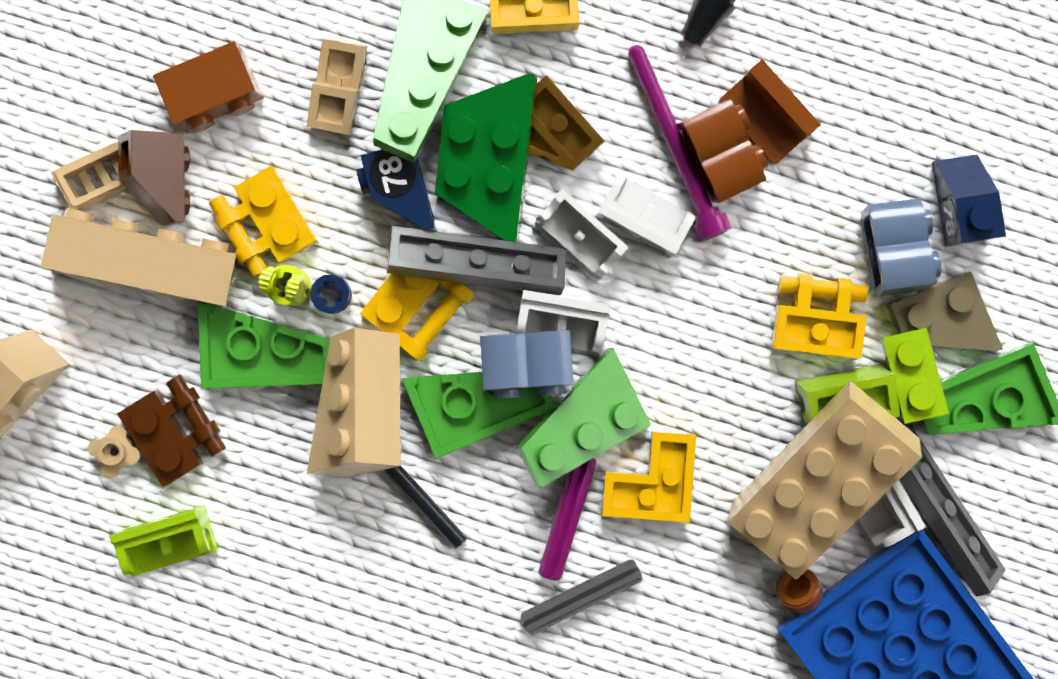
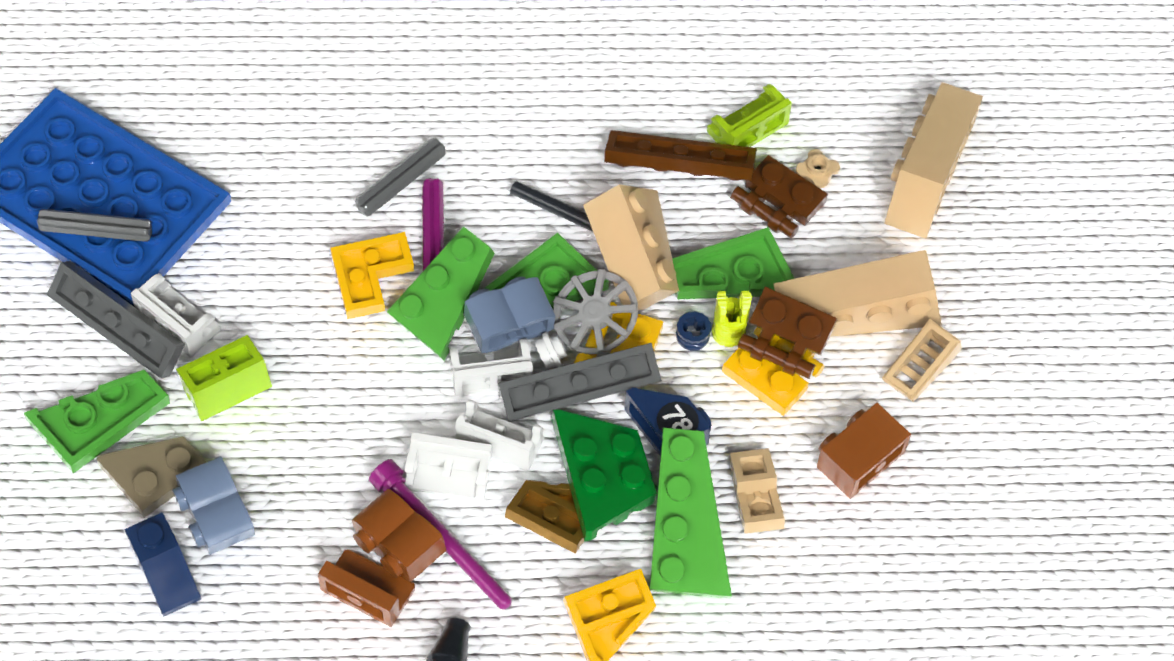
camera: 160 degrees right, 30 degrees down
(154, 171) = (878, 368): slope -> none
(224, 245) = (791, 321): none -> reddish brown plate
(261, 515) = (680, 155): none -> reddish brown plate
(432, 338) = (595, 311): none -> light grey wheel
(493, 316) = (551, 350): none -> white plate
(801, 594) = (221, 228): dark orange tile -> none
(820, 330) = (266, 424): yellow plate -> none
(824, 480) = (229, 297): tan brick -> none
(916, 375) = (172, 406): lime plate -> none
(941, 632) = (94, 225): none -> axle

